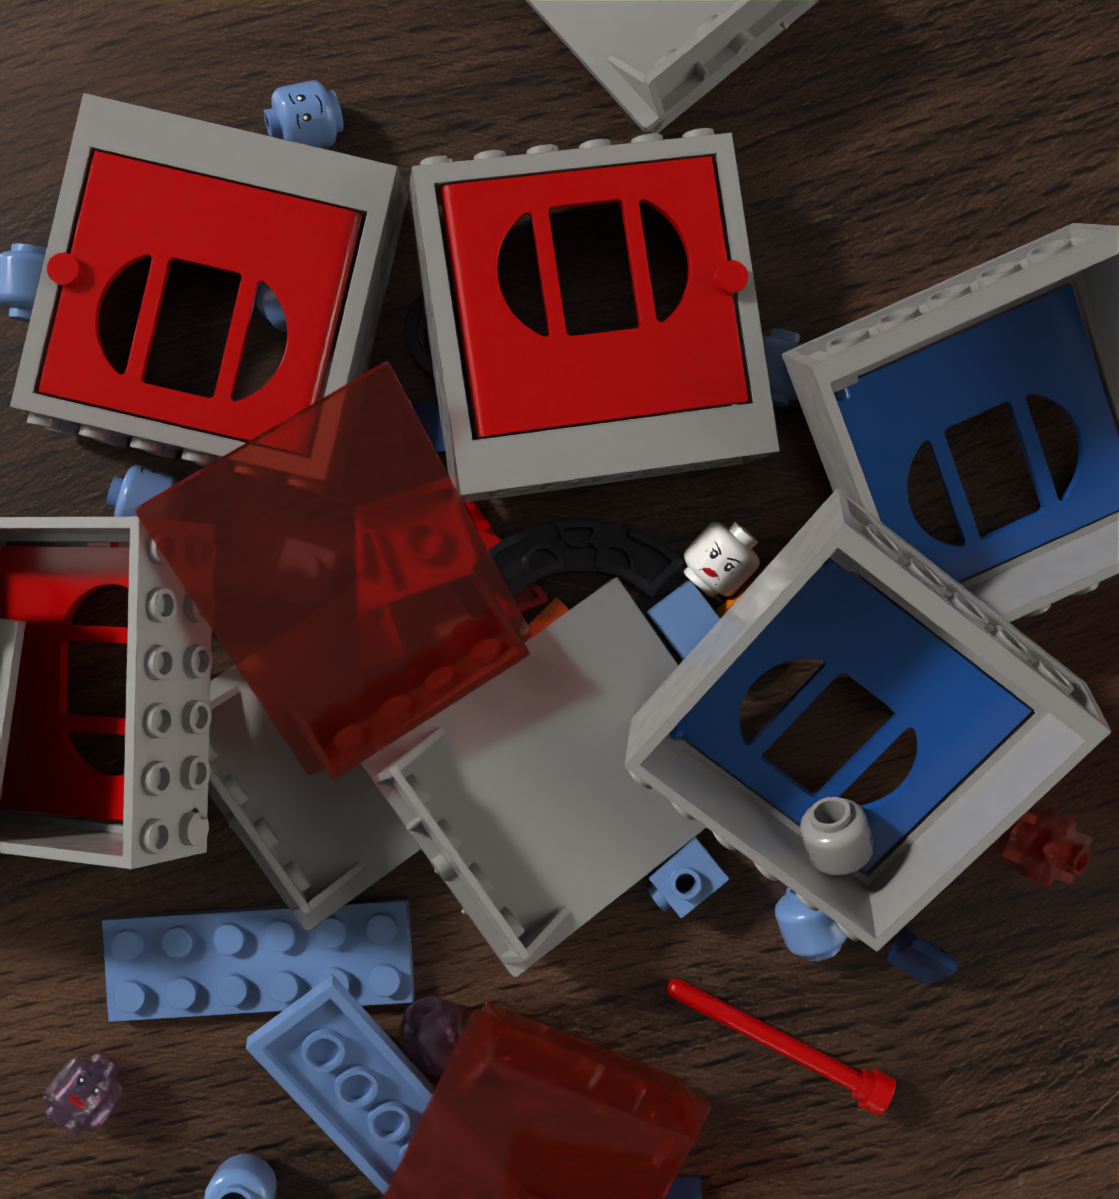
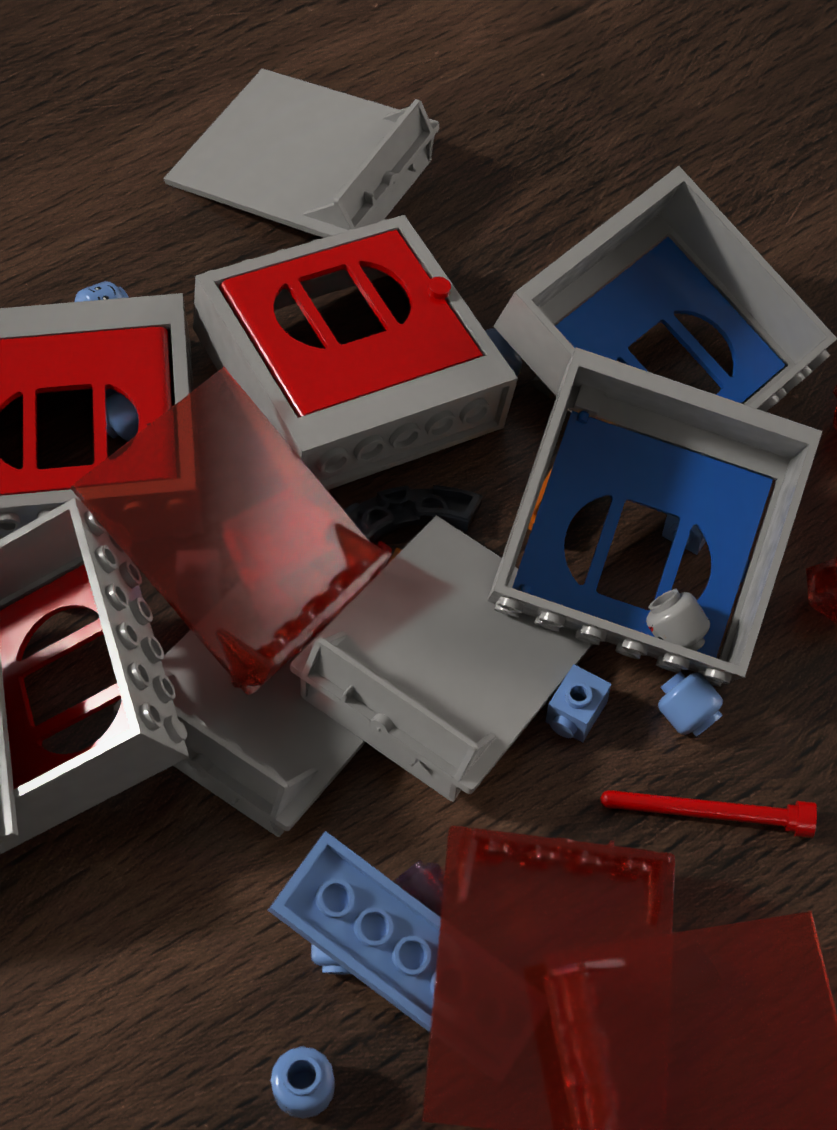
camera: 25 degrees left, 30 degrees down
(82, 1094) = (132, 1047): clear purple head -> none
(253, 959) = (228, 897): medium blue plate -> none
(684, 618) = (494, 521): medium blue brick -> none
(721, 559) = (506, 482): white head -> none
(920, 958) = (788, 706): dark blue slope -> none

